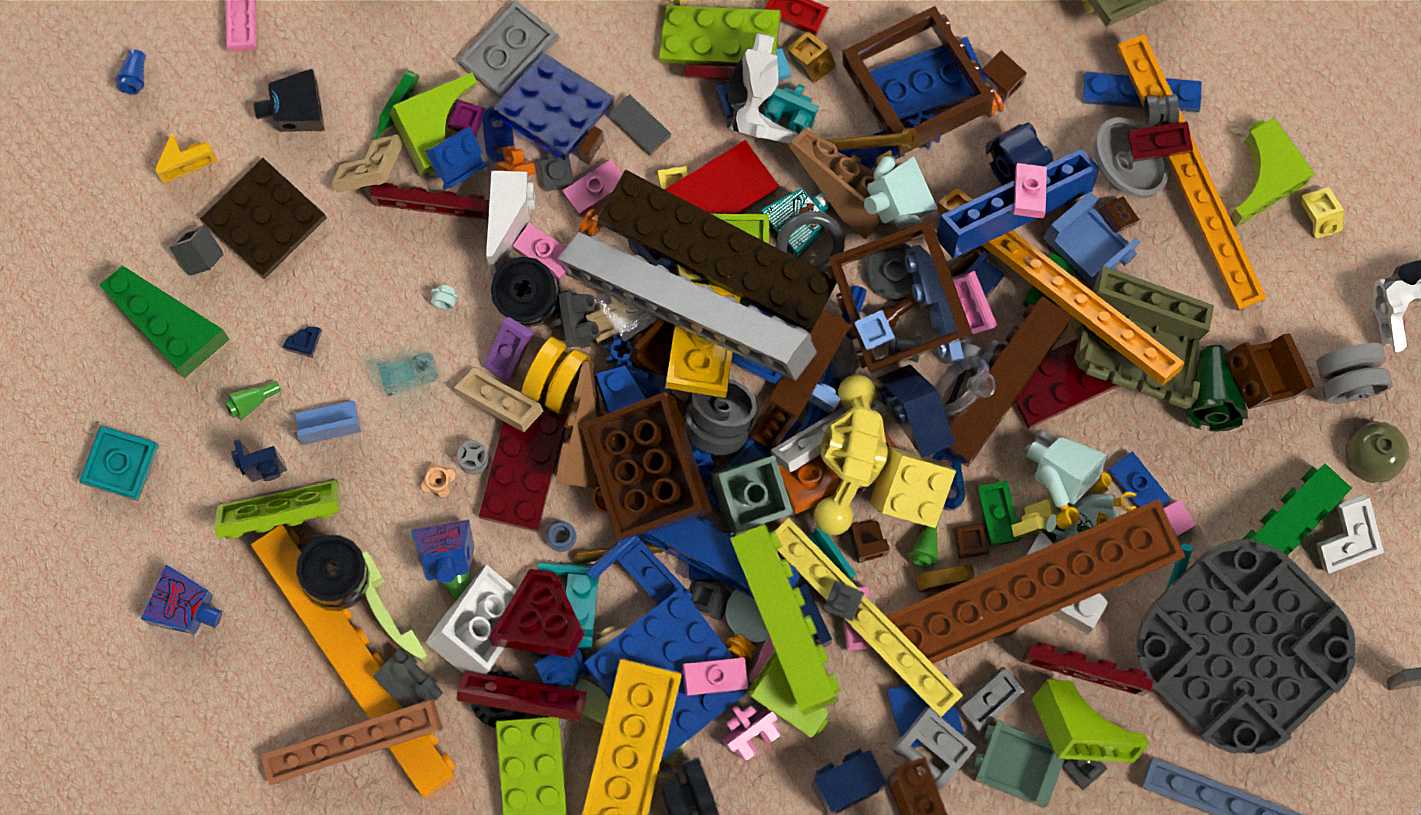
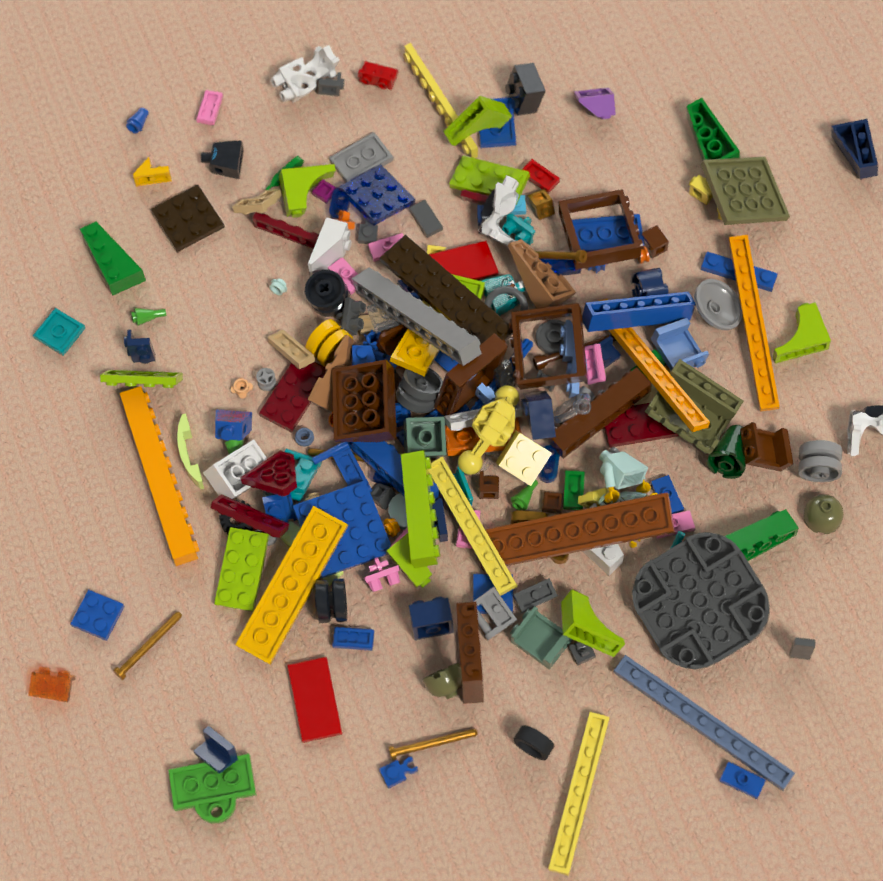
camera: 20 degrees right, 10 degrees down
(180, 604) = (67, 417): blue torso -> none
(196, 250) = (142, 225): dark grey panel -> none
(304, 341) = (188, 292): dark blue tile -> none
(327, 422) = (187, 339): medium blue panel -> none
(327, 555) = (161, 417): black wheel -> none
(351, 742) = (141, 517): nougat plate -> none
(406, 680) = (185, 494): dark grey plate -> none
(408, 373) = (242, 323): clear light blue leg -> none
(456, 158) = (309, 208): blue plate -> none
(508, 349) = (306, 322): medium lavender plate -> none
(589, 223) = (378, 266): orange bush -> none
(591, 144) = (392, 222): reddish brown tile -> none
(715, 676) = (369, 536): bright pink plate -> none
(843, 601) = (460, 511): dark grey tile -> none
(874, 330) = (526, 359): light blue plate -> none
(899, 192) = (566, 287): light aqua torso -> none
(1030, 190) = (645, 303): bright pink plate -> none
(1100, 672) = (596, 590): dark red plate -> none
(1119, 214) = (702, 337): reddish brown tile -> none
(1160, 141) = (737, 297): dark red plate -> none
(1161, 109) = (743, 279): dark grey wheel -> none
(1324, 212) = (831, 366): light yellow bracket -> none
(1359, 539) = (795, 561): white plate -> none

